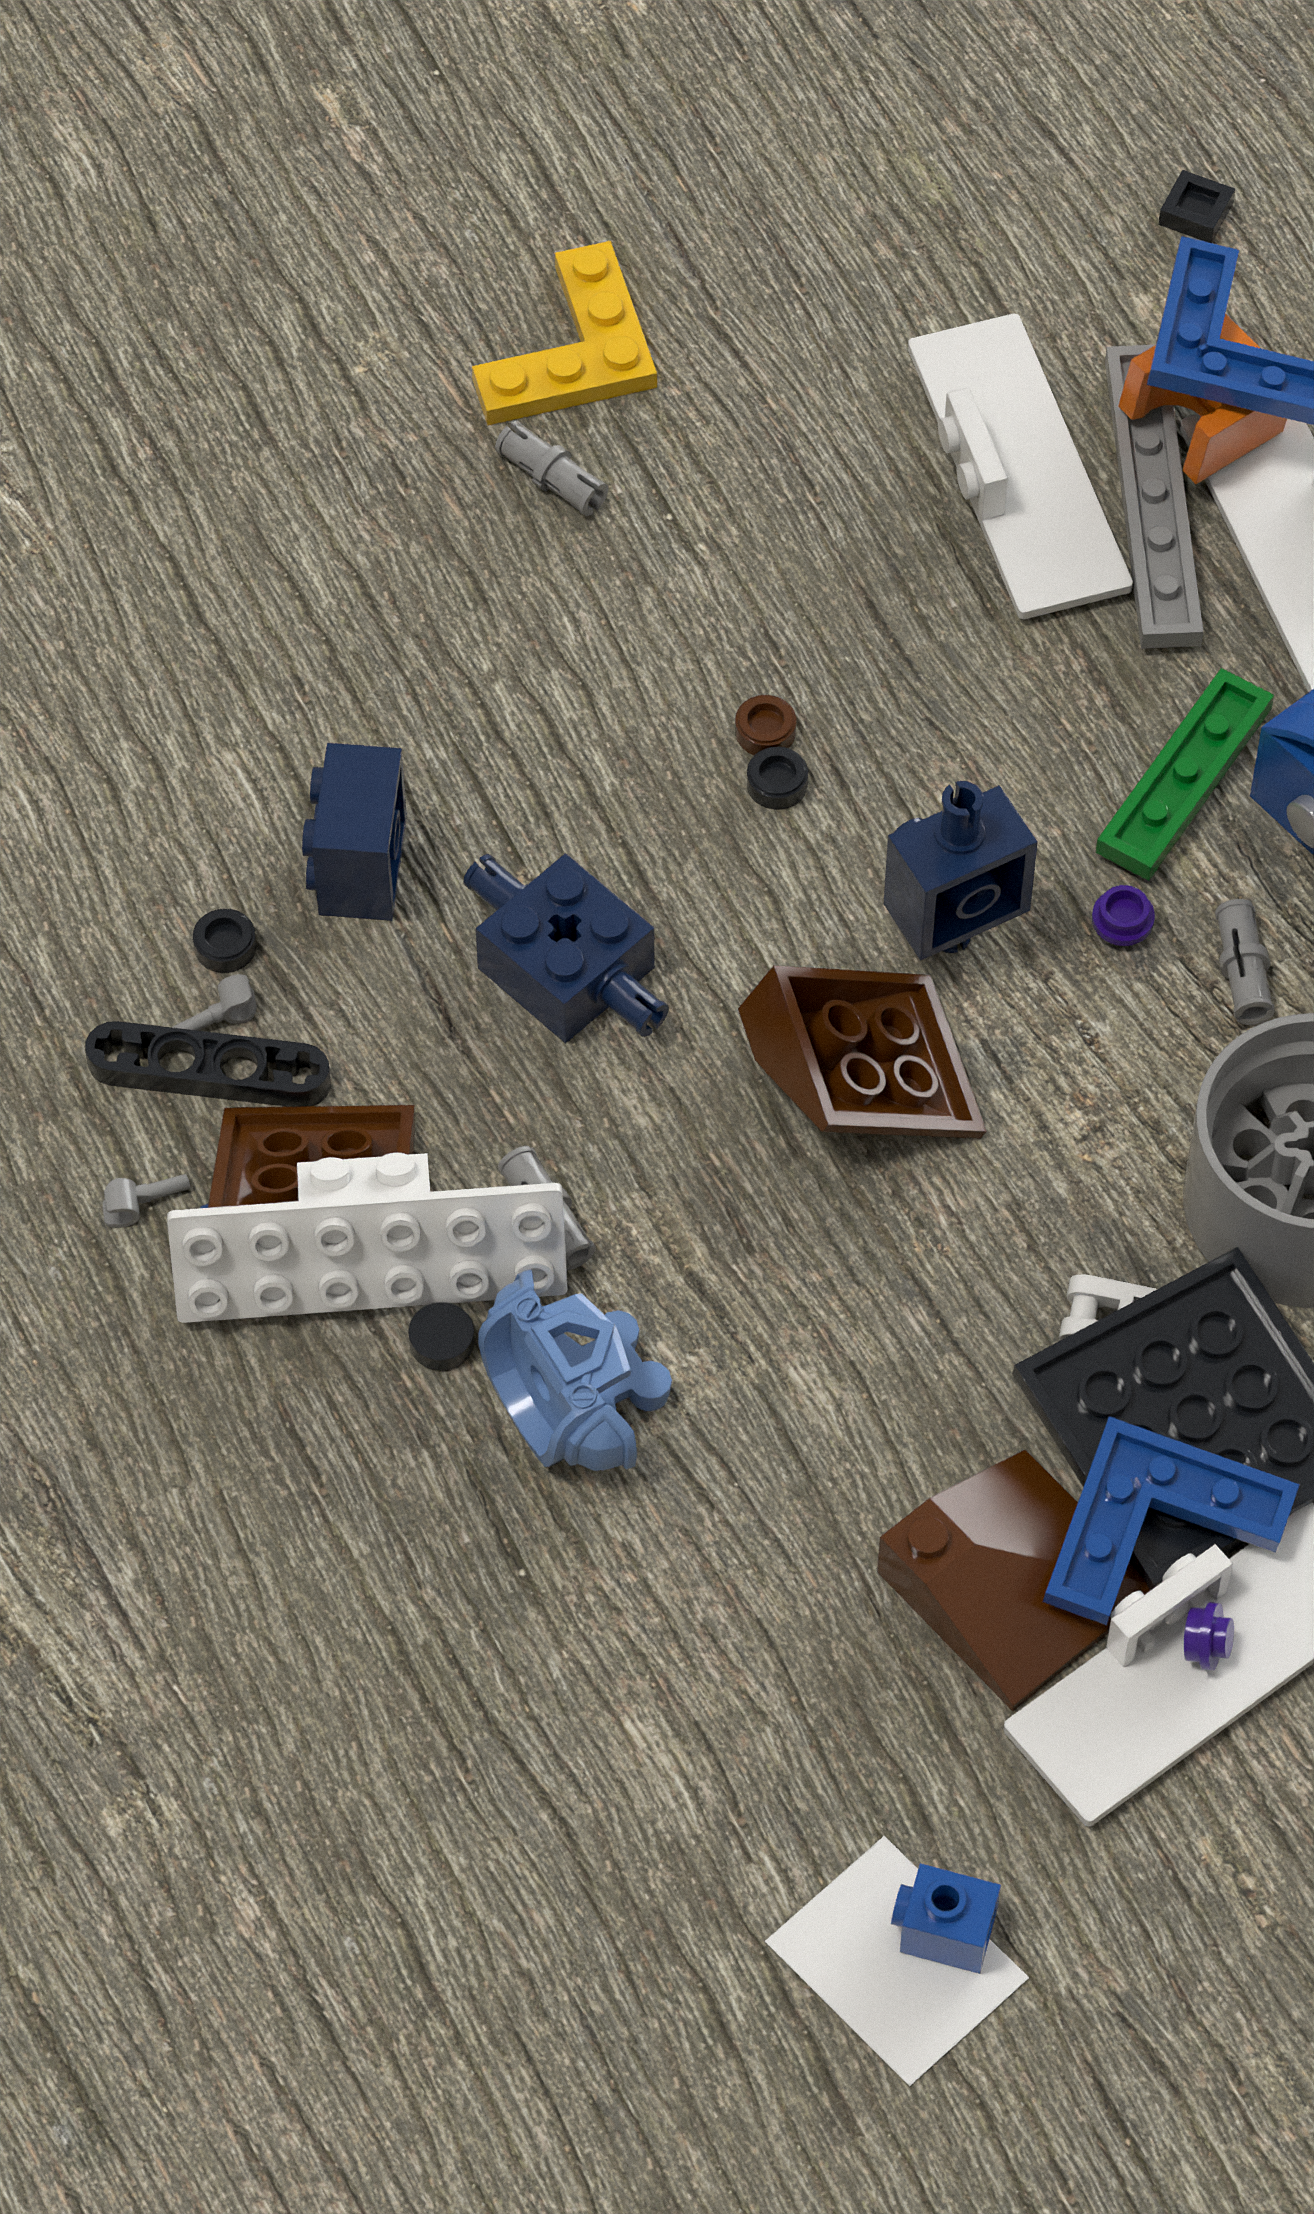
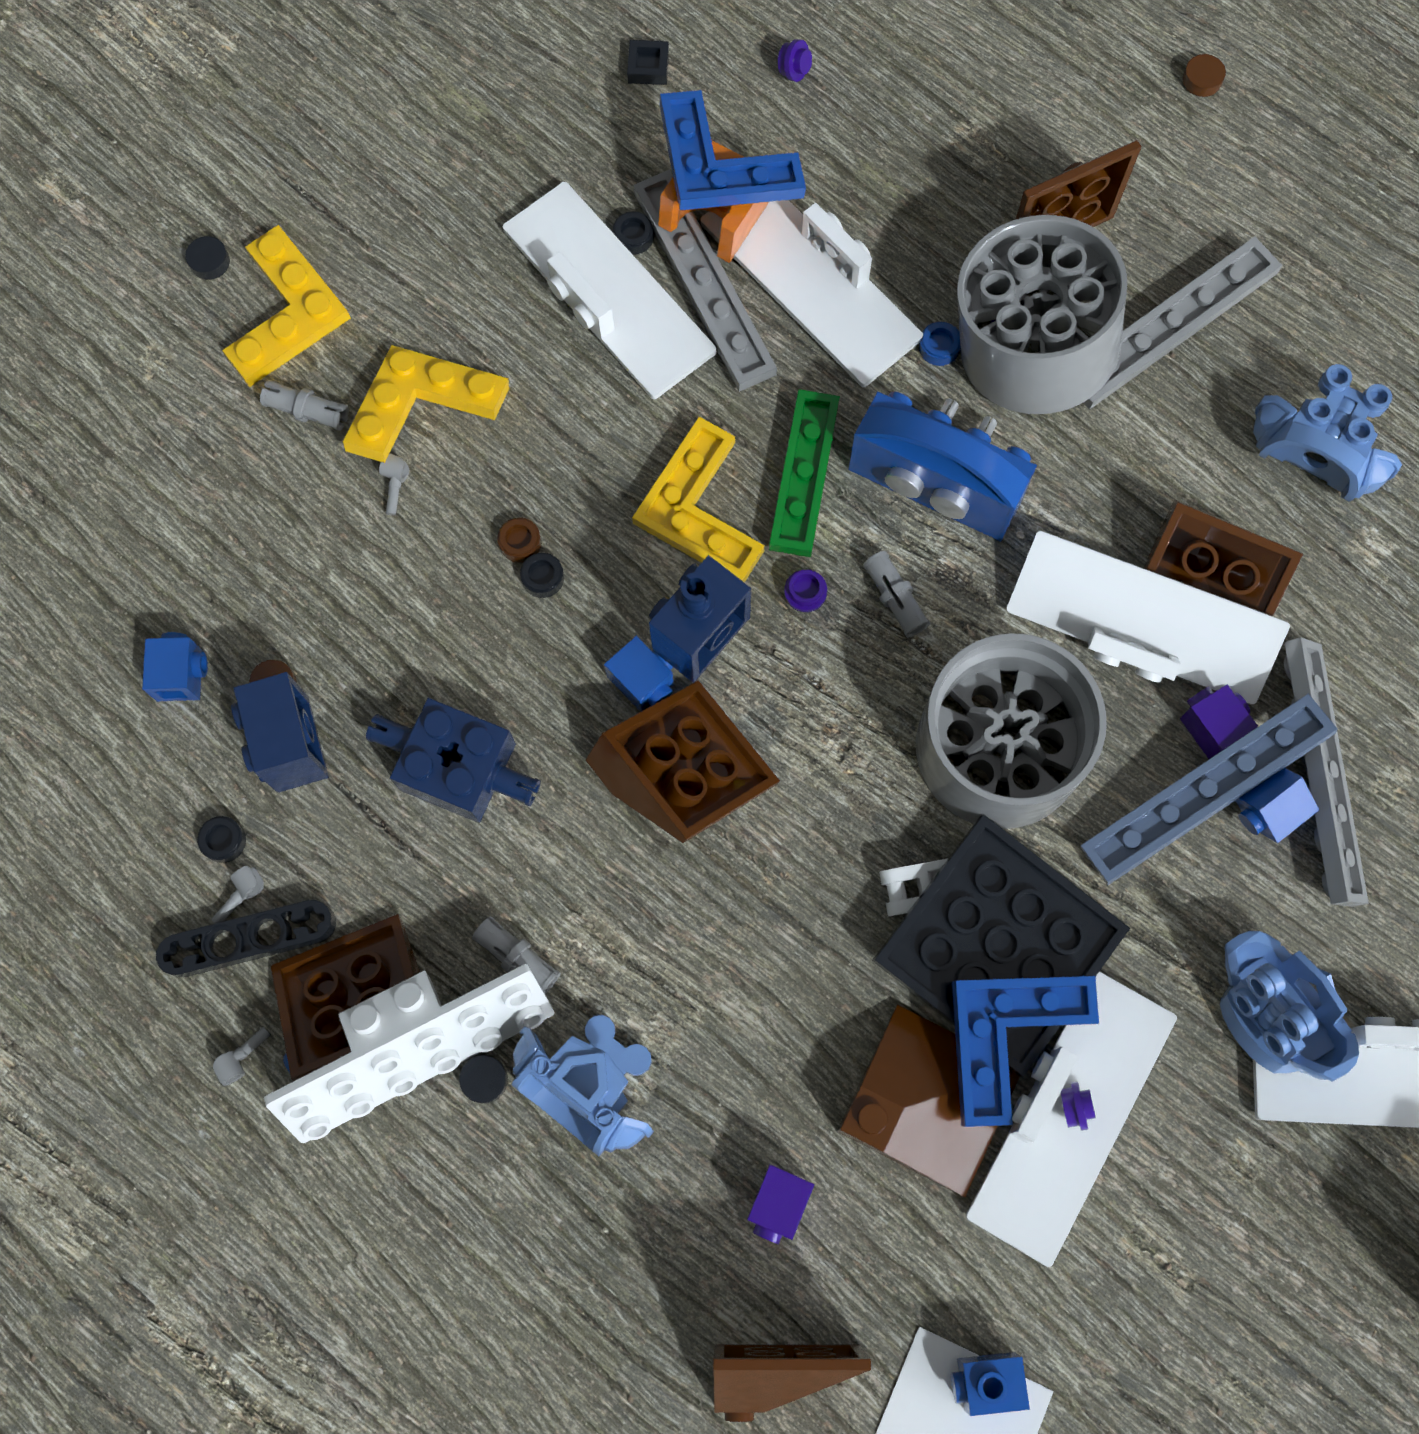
camera: 20 degrees left, 15 degrees up
(250, 717) = (173, 668): none -> blue brick
(499, 251) = (207, 257): none -> black tile
(639, 589) = (397, 471): none -> light grey hand
(680, 1774) = (771, 1375): none -> reddish brown slope
(708, 480) = (412, 376): none -> yellow plate
(764, 1605) = (779, 1205): none -> dark purple brick
(855, 929) = (640, 674): none -> blue brick
(1010, 731) = (671, 509): none -> yellow plate
(1085, 407) = (634, 231): none -> black tile

